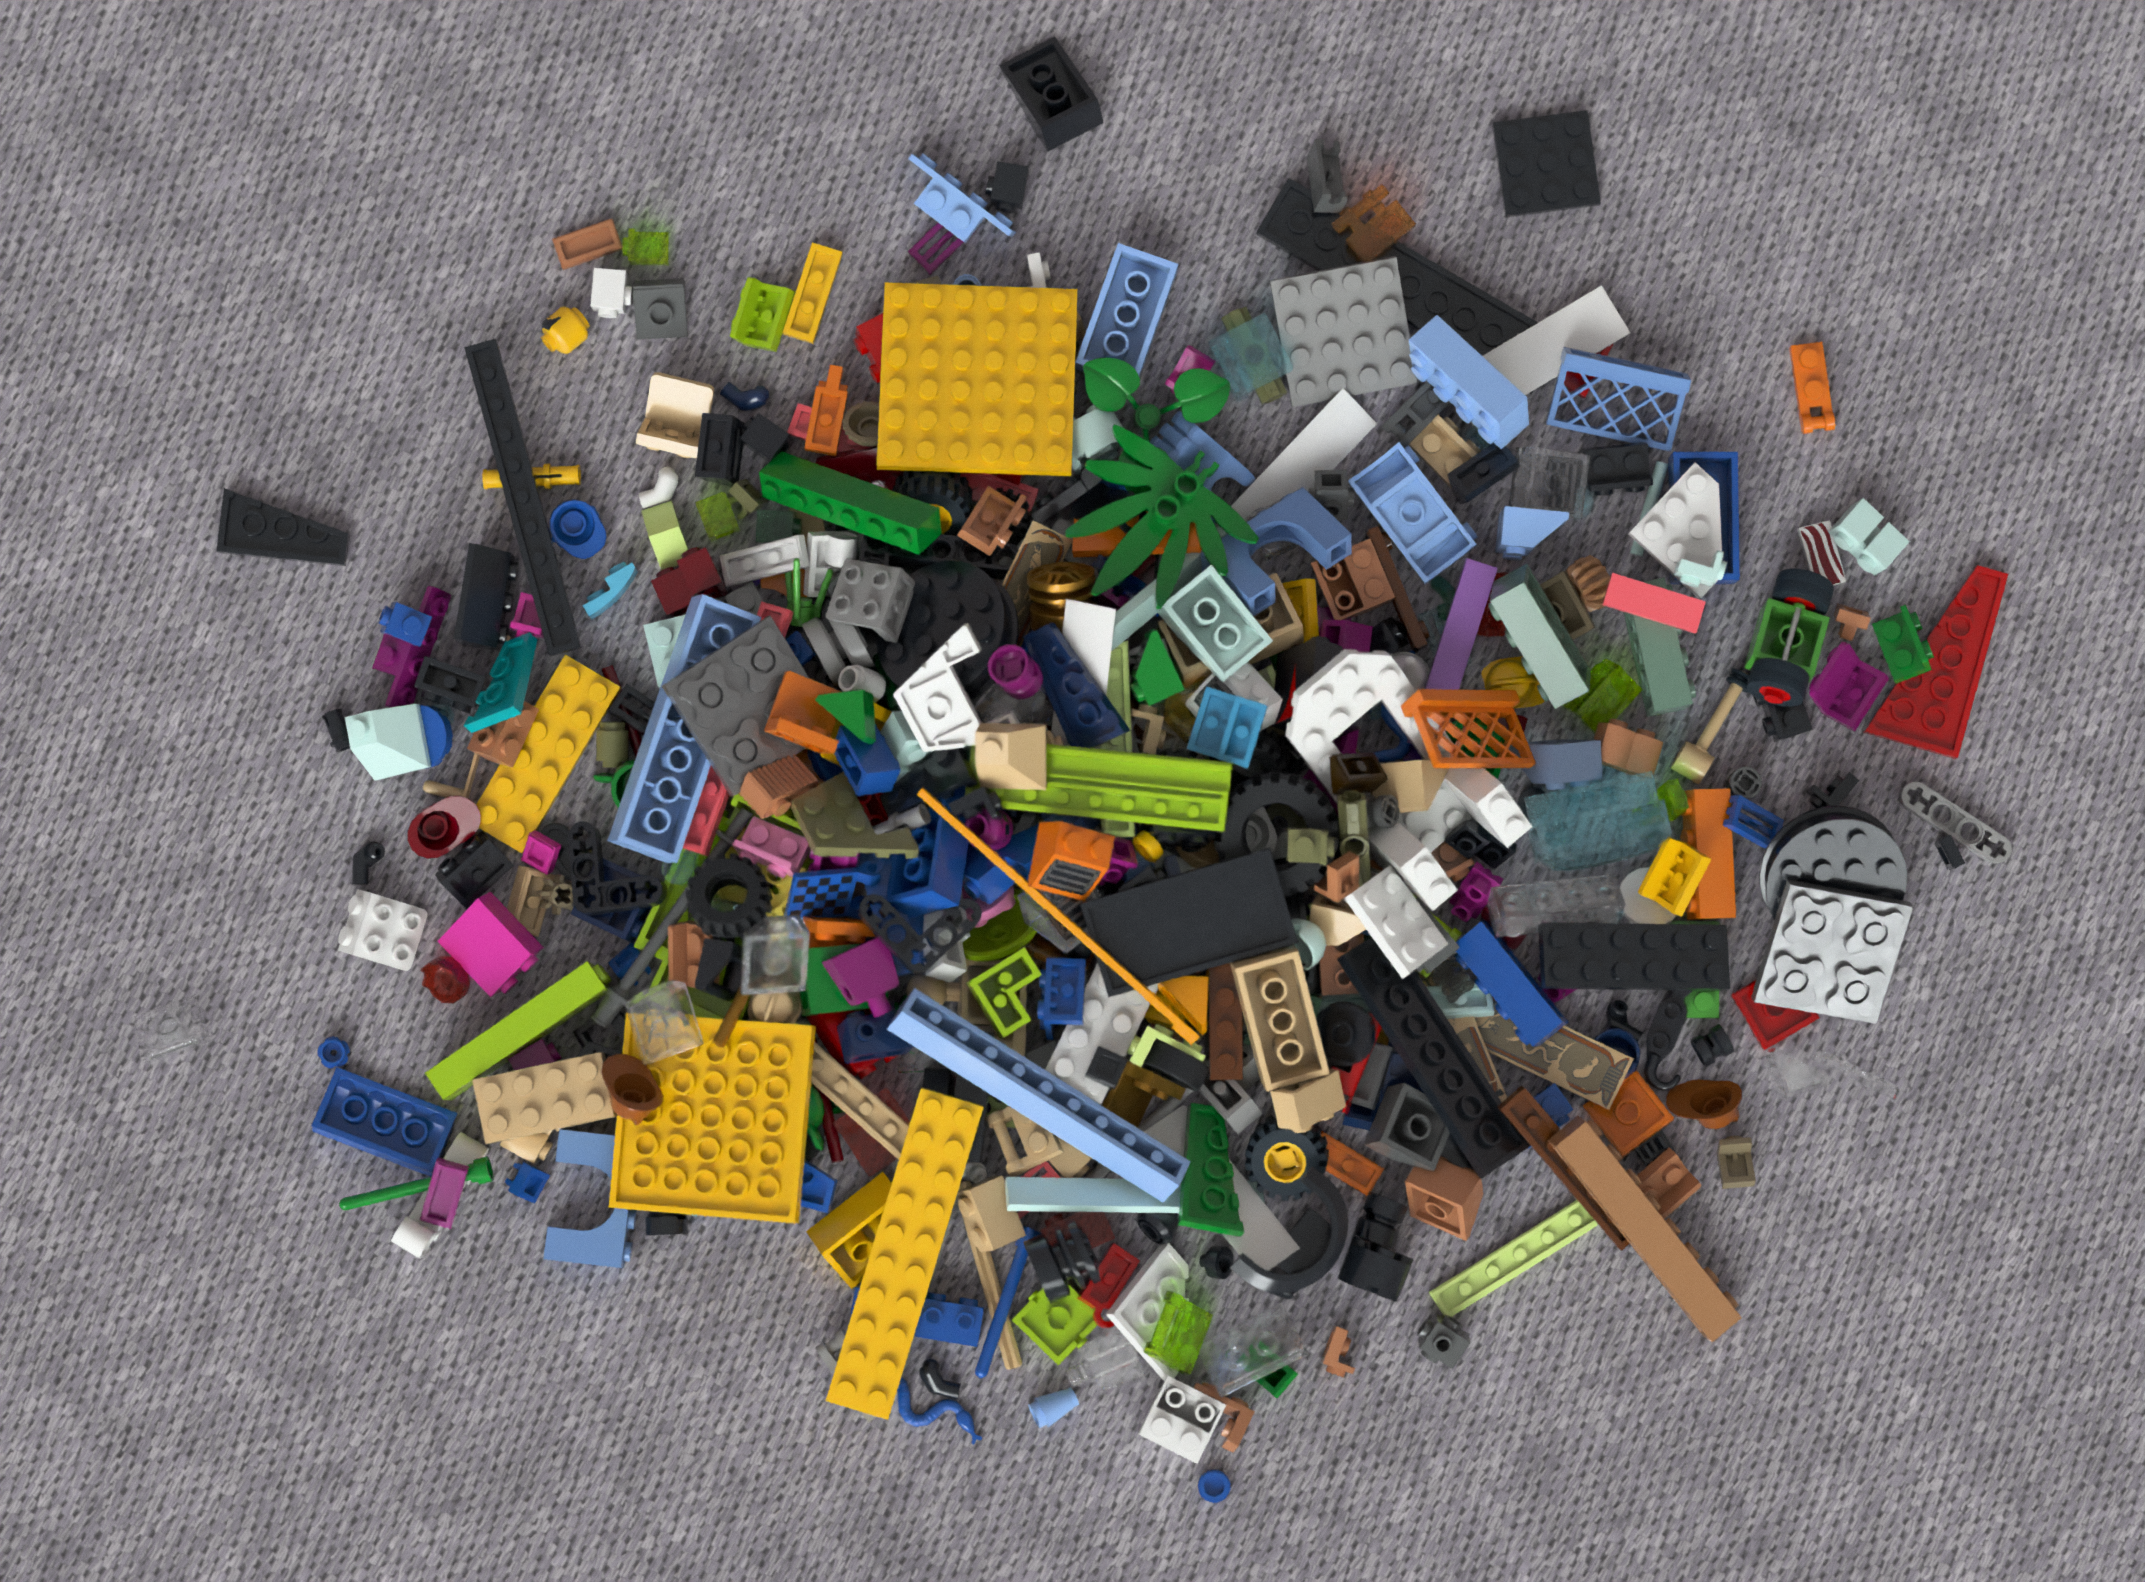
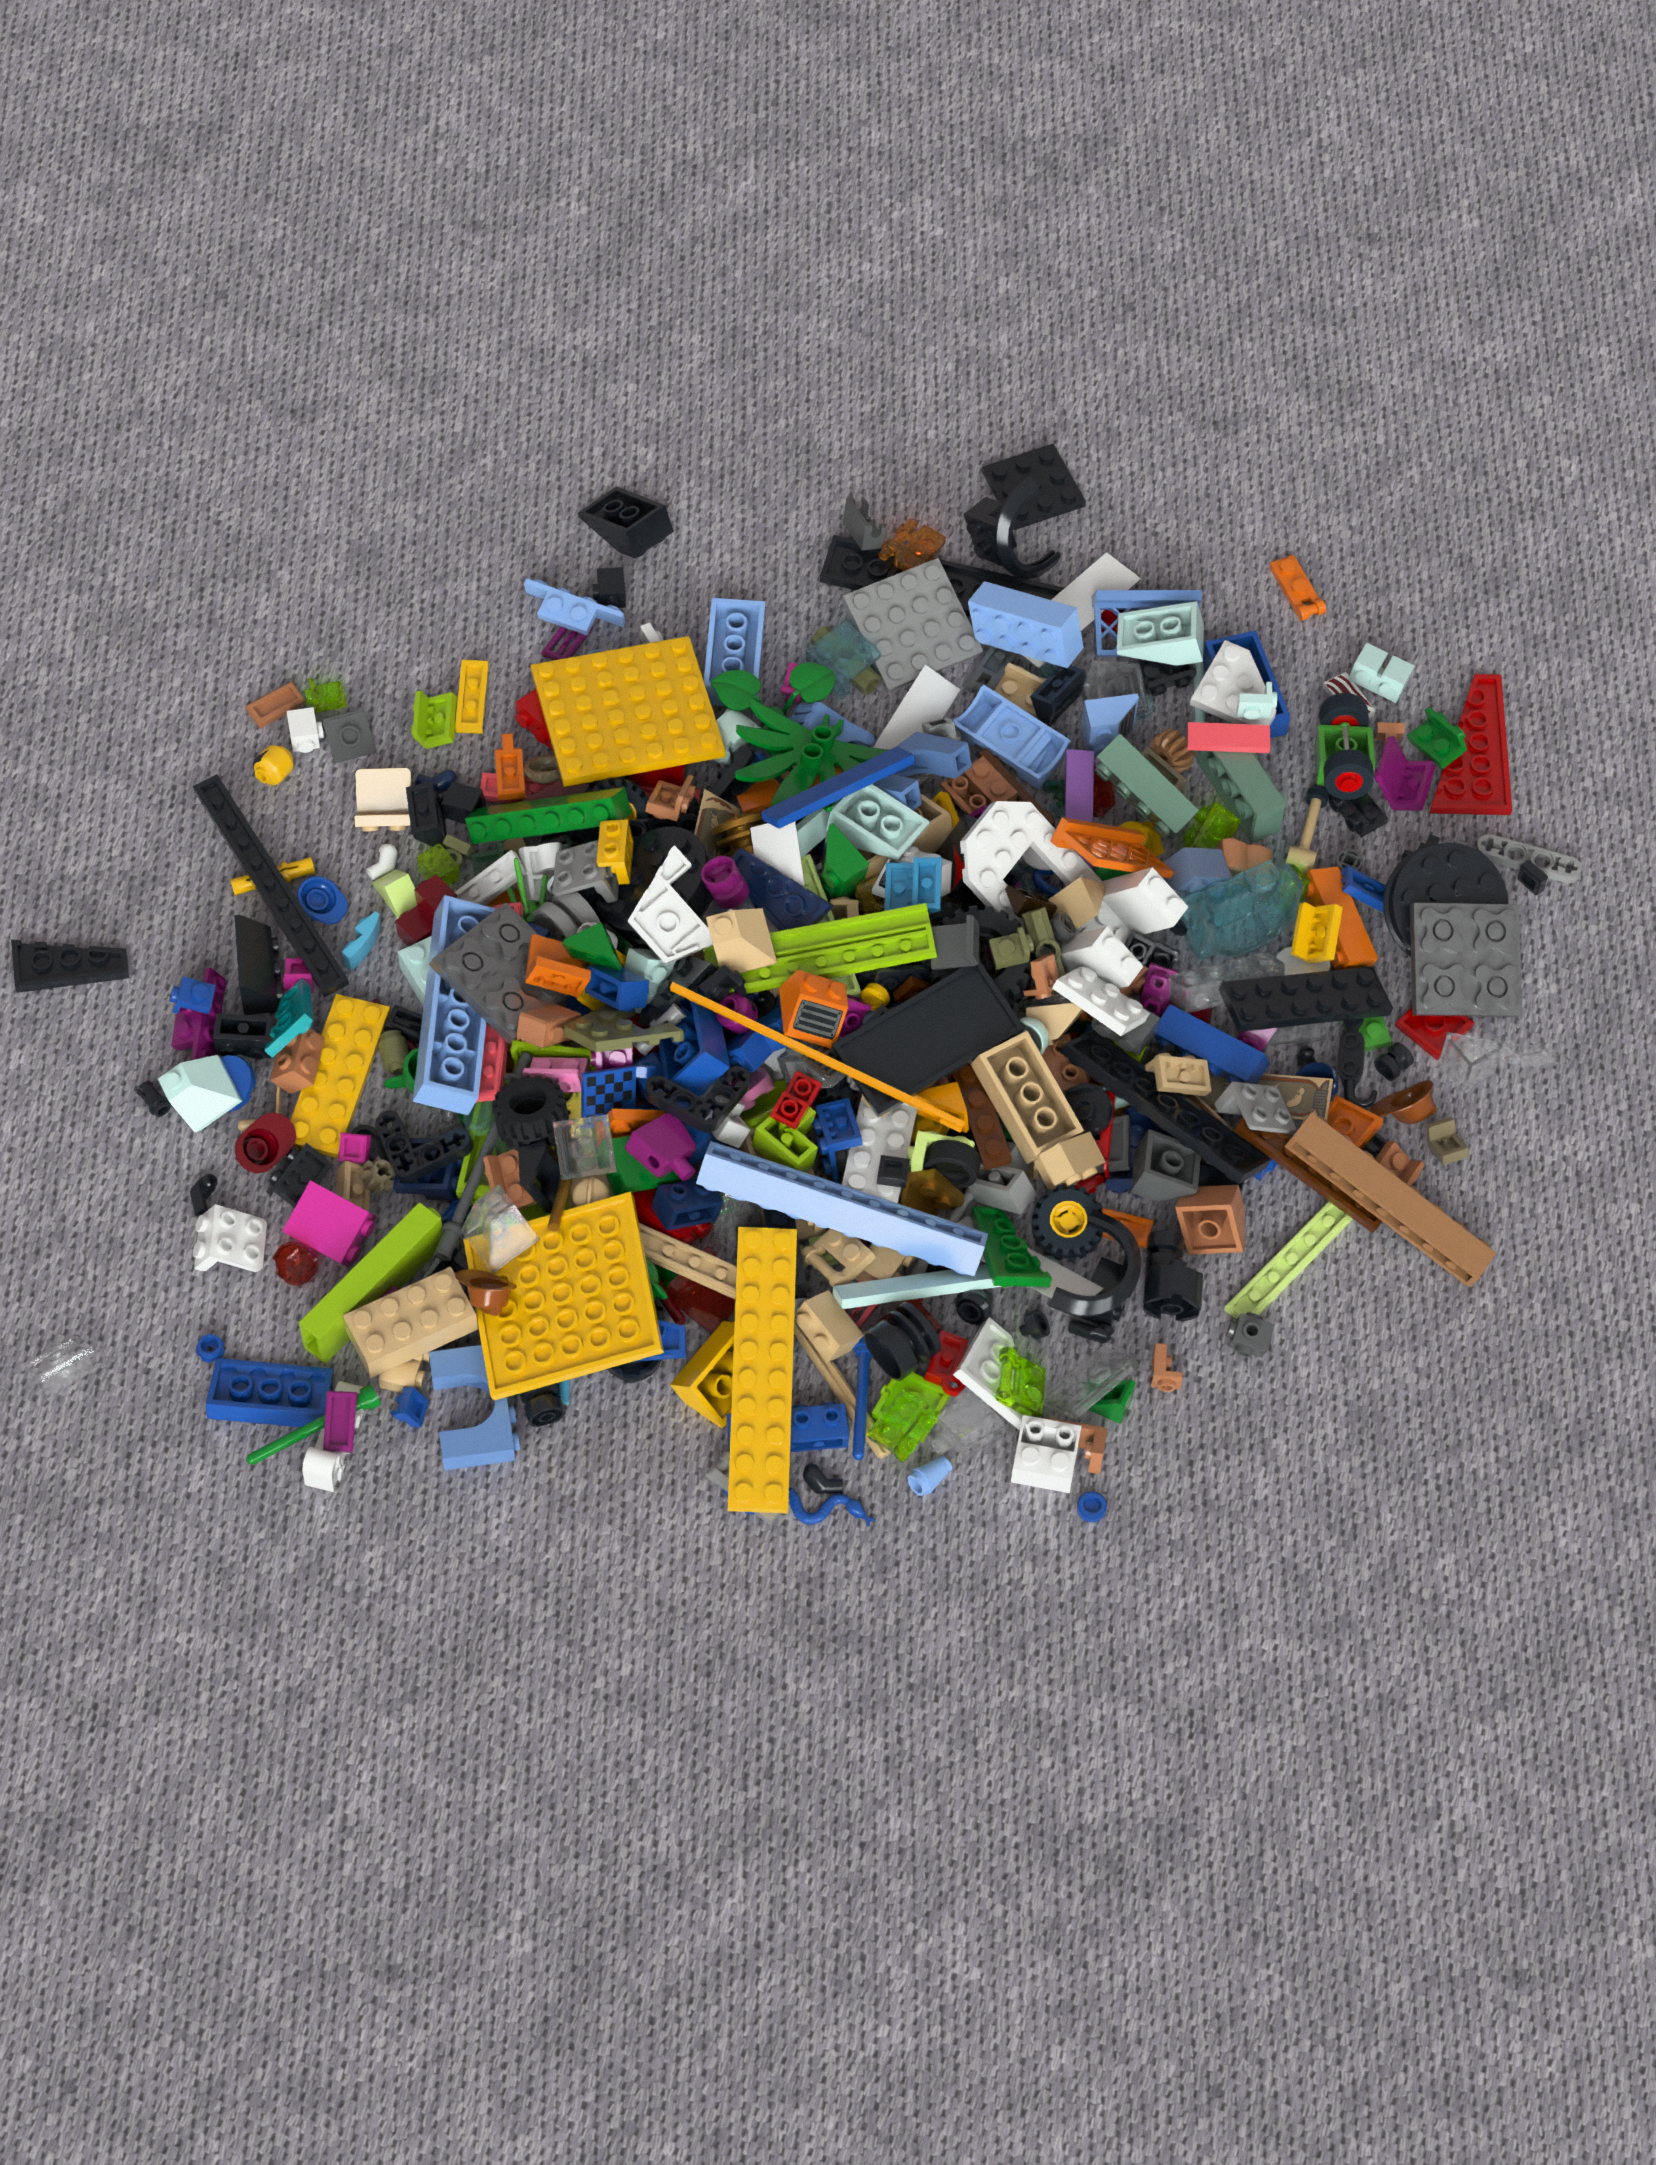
camera: 15 degrees left, 25 degrees down
(908, 586) = (616, 848): none -> yellow bracket
(1021, 960) = (796, 1100): none -> red slope
(1037, 1350) = (903, 1425): none -> clear neon green bracket
(1176, 582) = (837, 787): none -> blue tile
(1191, 854) = (910, 988): none -> reddish brown tile
(1249, 826) = (956, 944): none -> dark grey piece
(1463, 1018) = (1180, 1074): none -> tan bracket
(1476, 236) = (992, 535): none -> black piece
(1535, 1090) = (1260, 1106): none -> light grey bracket
(1625, 429) = (1162, 634): none -> light aqua slope

